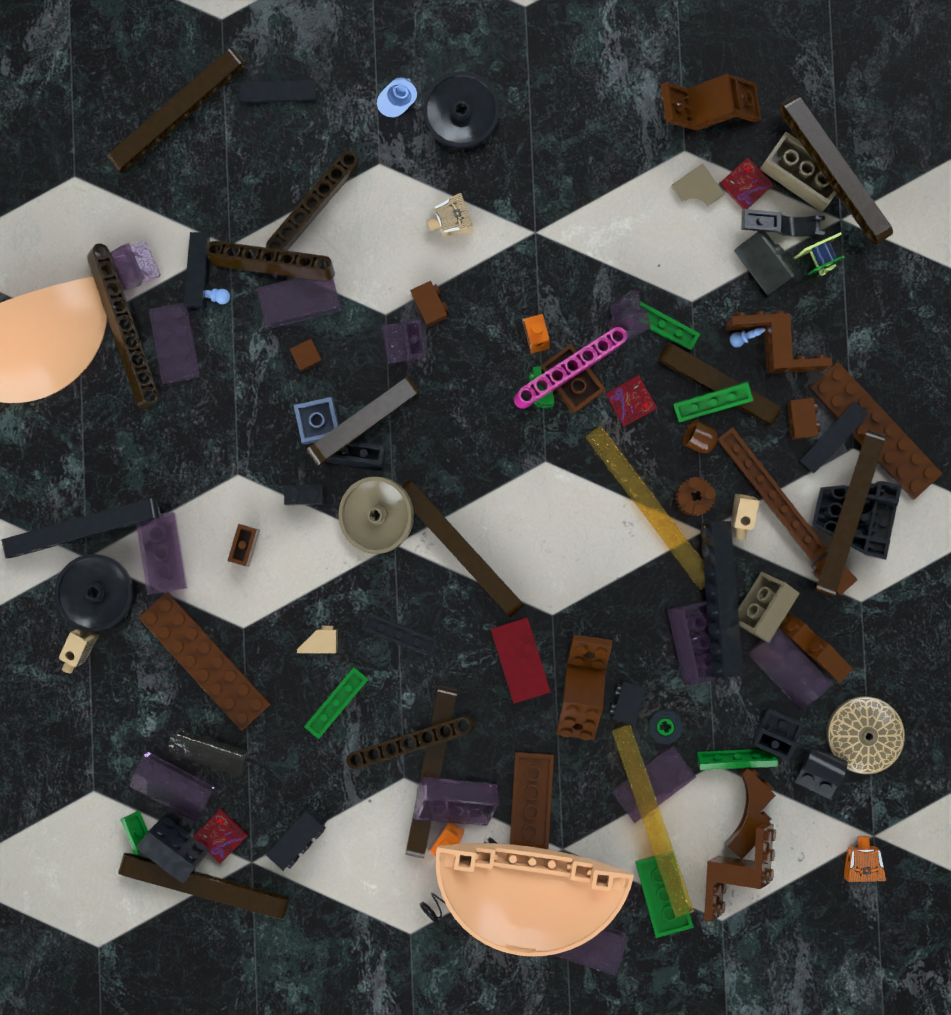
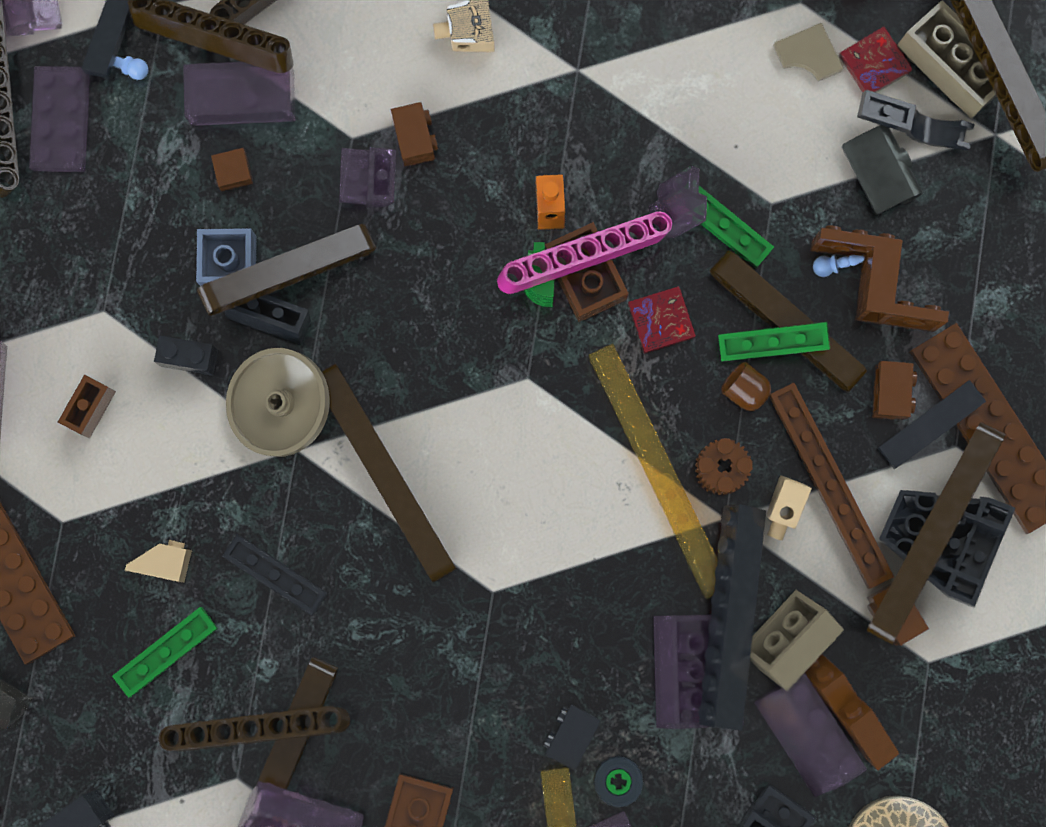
camera: 10 degrees right, 5 degrees down
(520, 660) = (433, 645): dark red brick -> none
(584, 687) = (514, 701): reddish brown bracket -> none
(822, 255) = (961, 172): piece -> none

